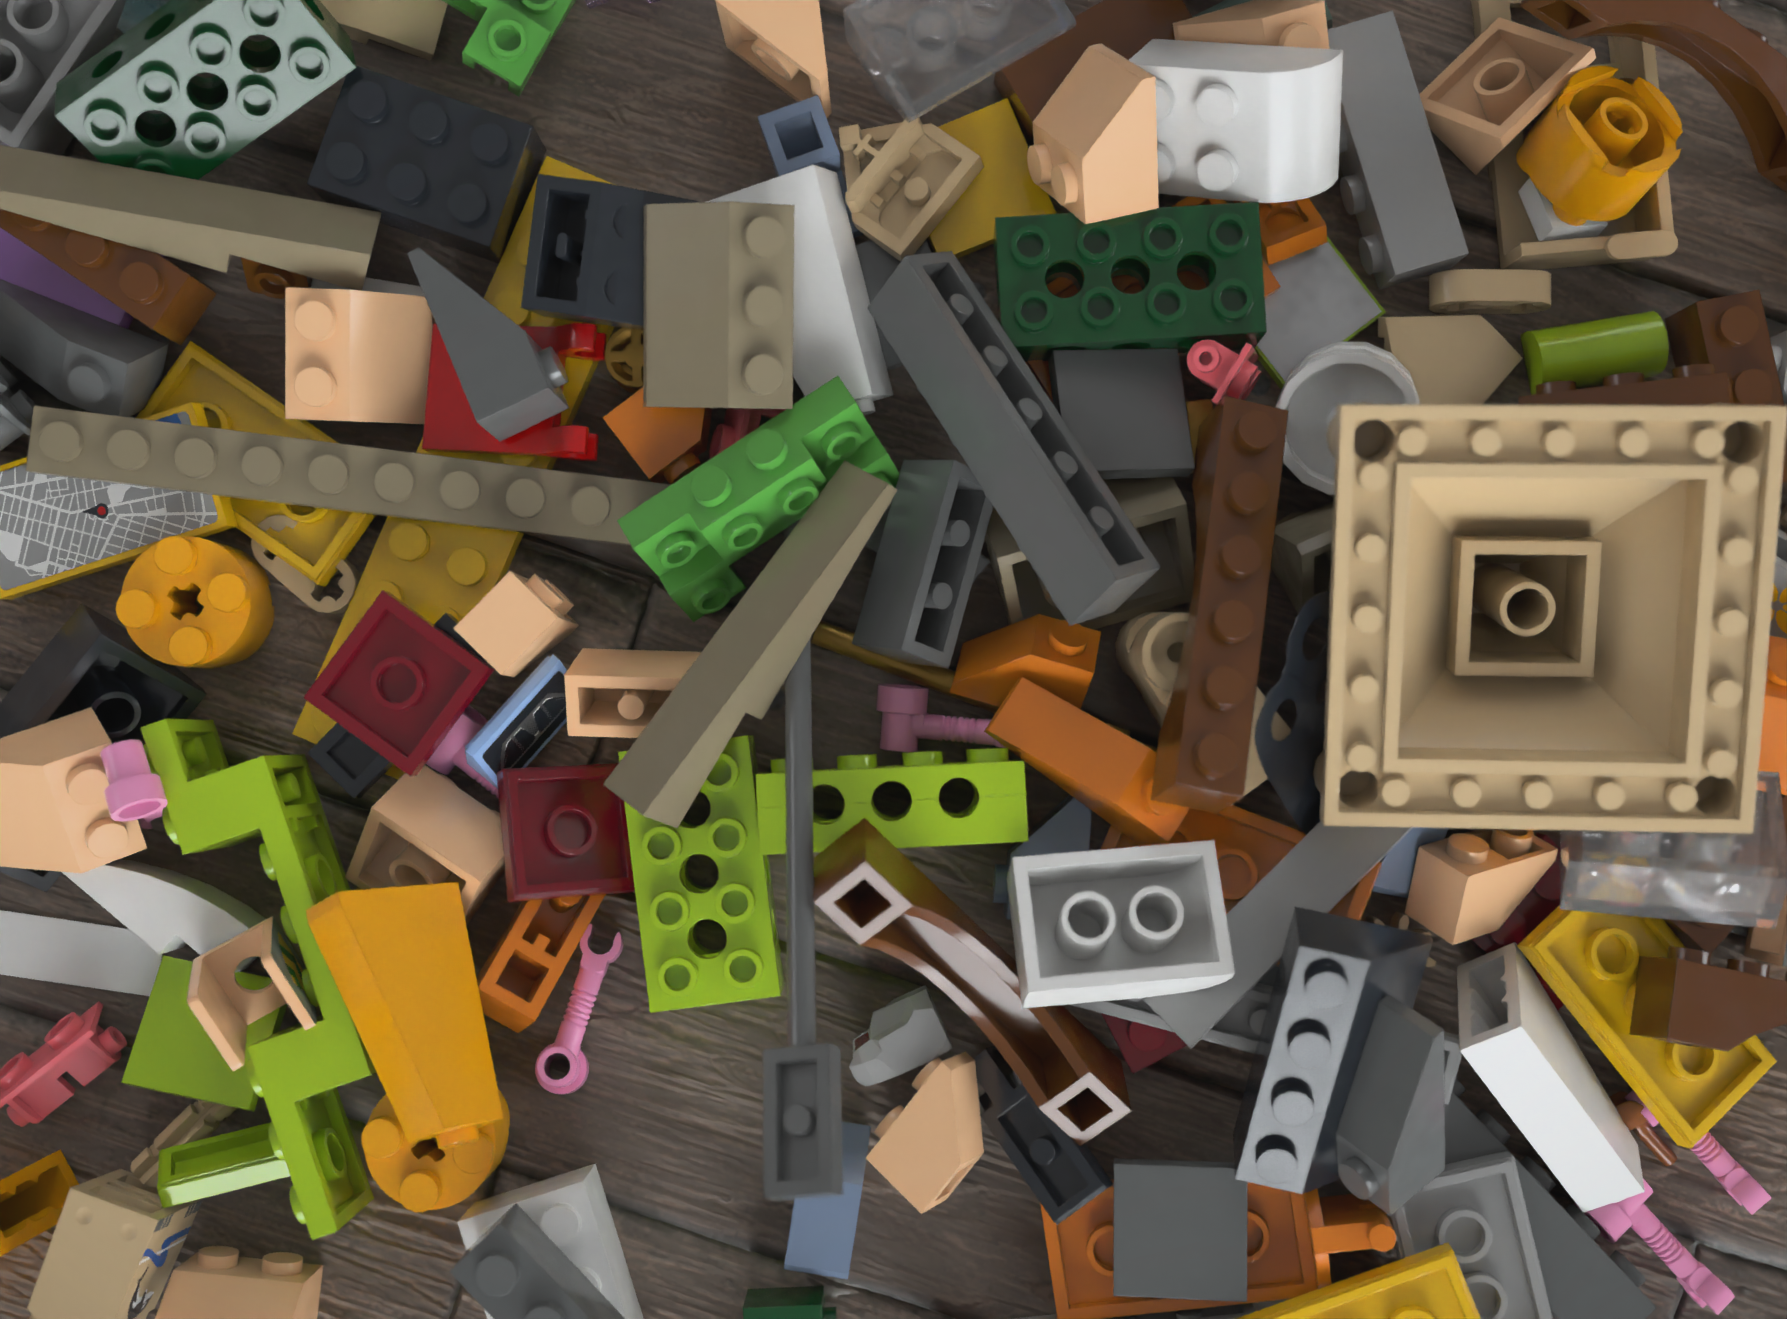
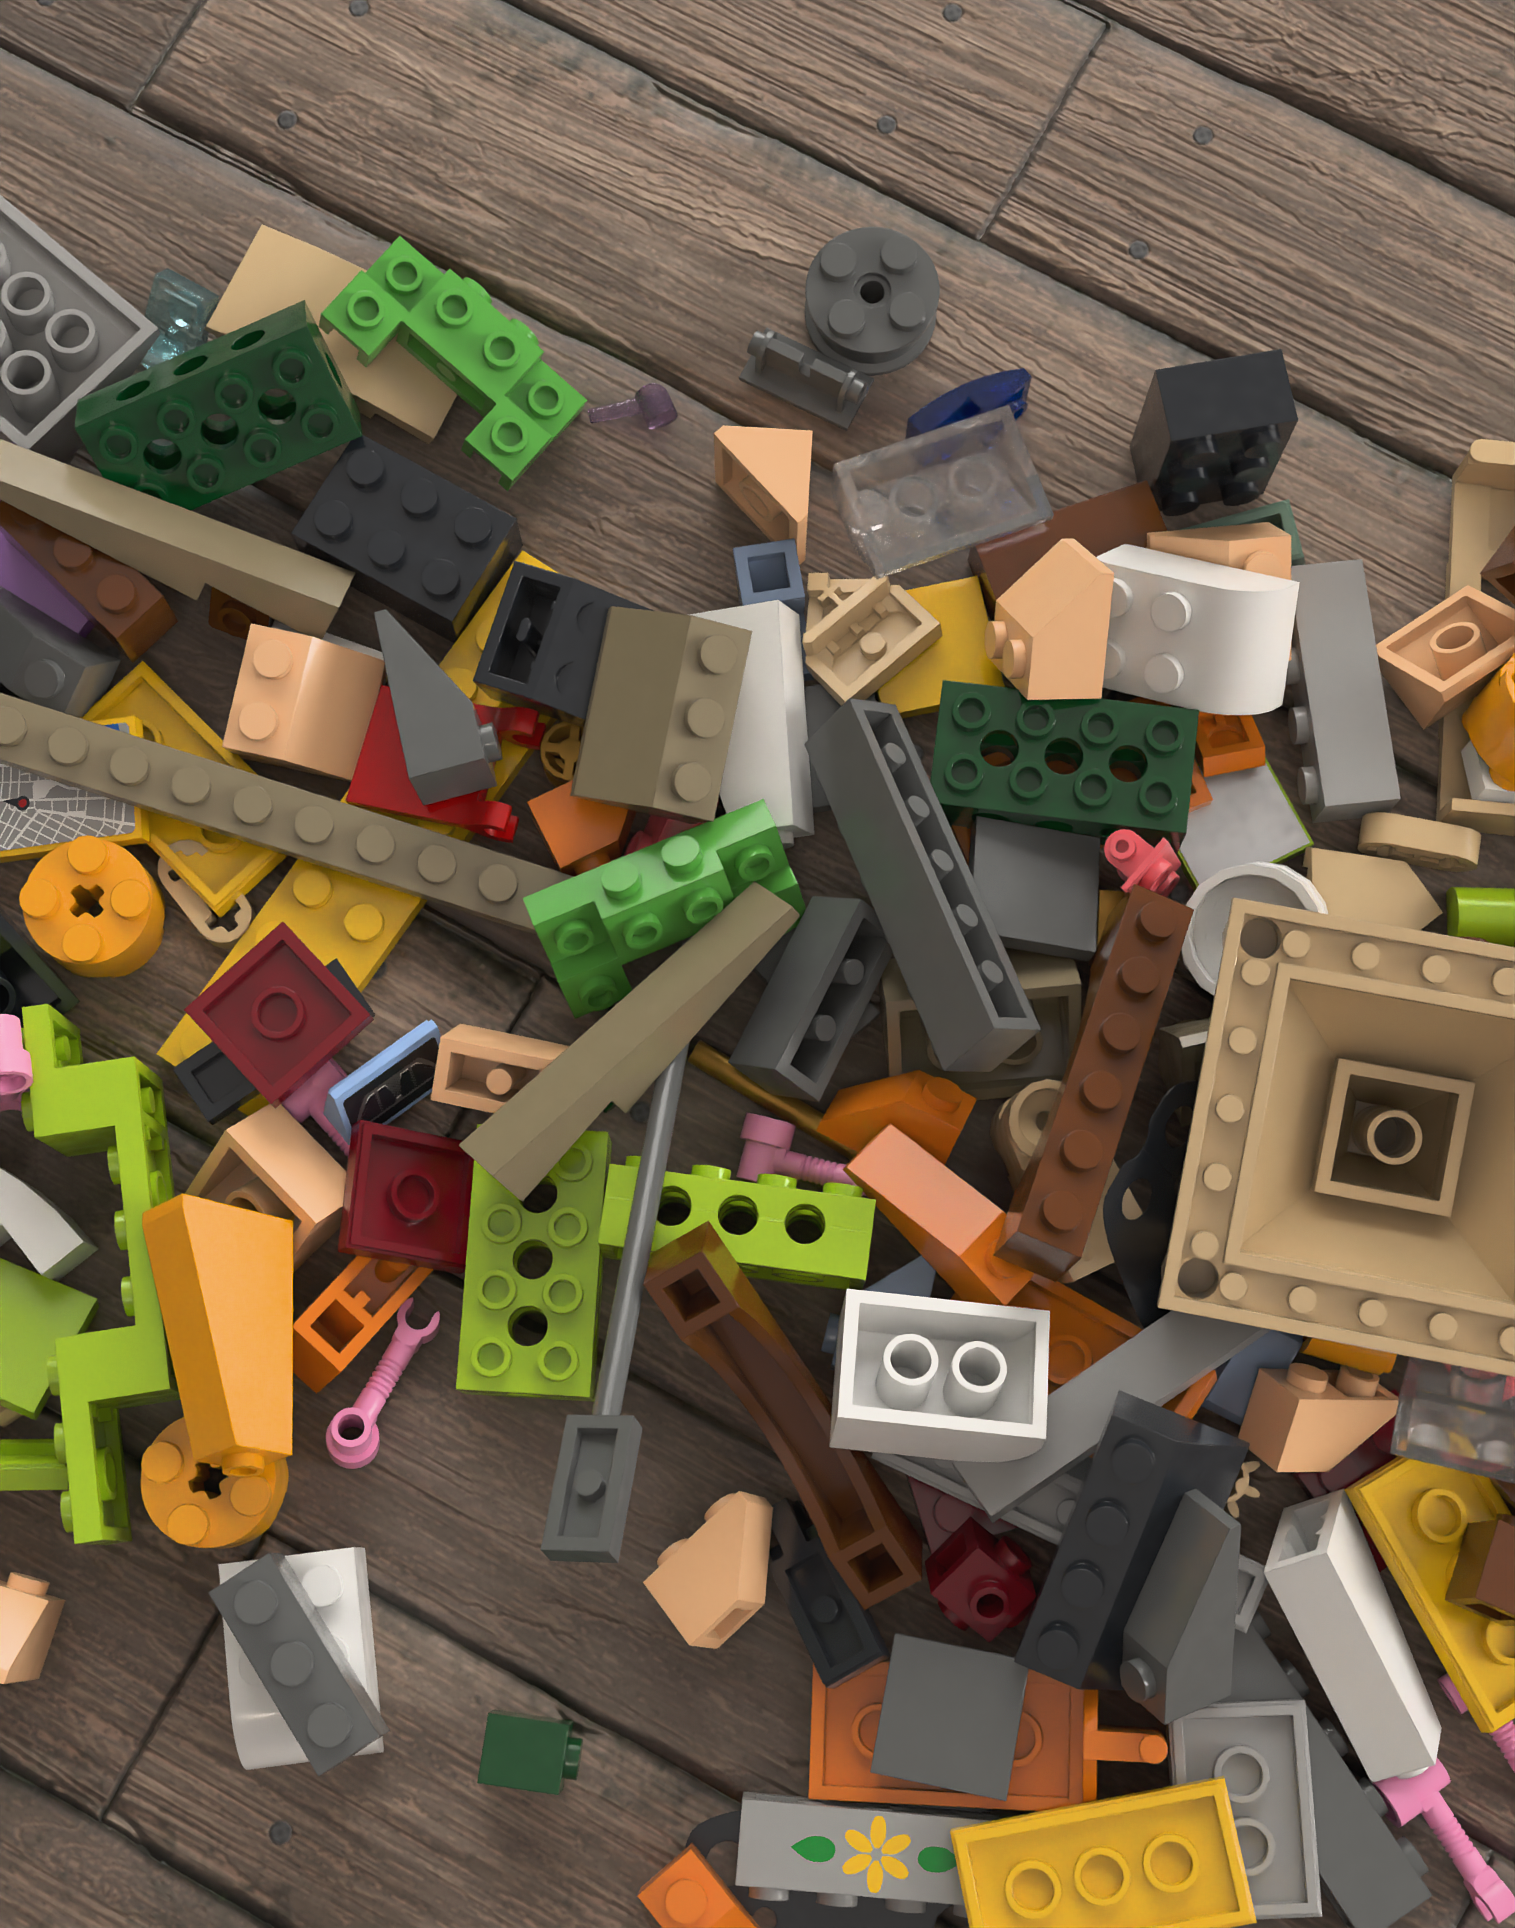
camera: 10 degrees right, 10 degrees down
(227, 1007) = (49, 1309): light nougat piece -> none
(518, 622) = (406, 980): light nougat slope -> none
(826, 1226) = (594, 1628): sand blue slope -> none
(899, 1038) = (699, 1470): light grey rock -> none
(1184, 1093) = (981, 1580): none -> dark red brick
(1631, 1115) = (1439, 1695): dark orange hand -> none

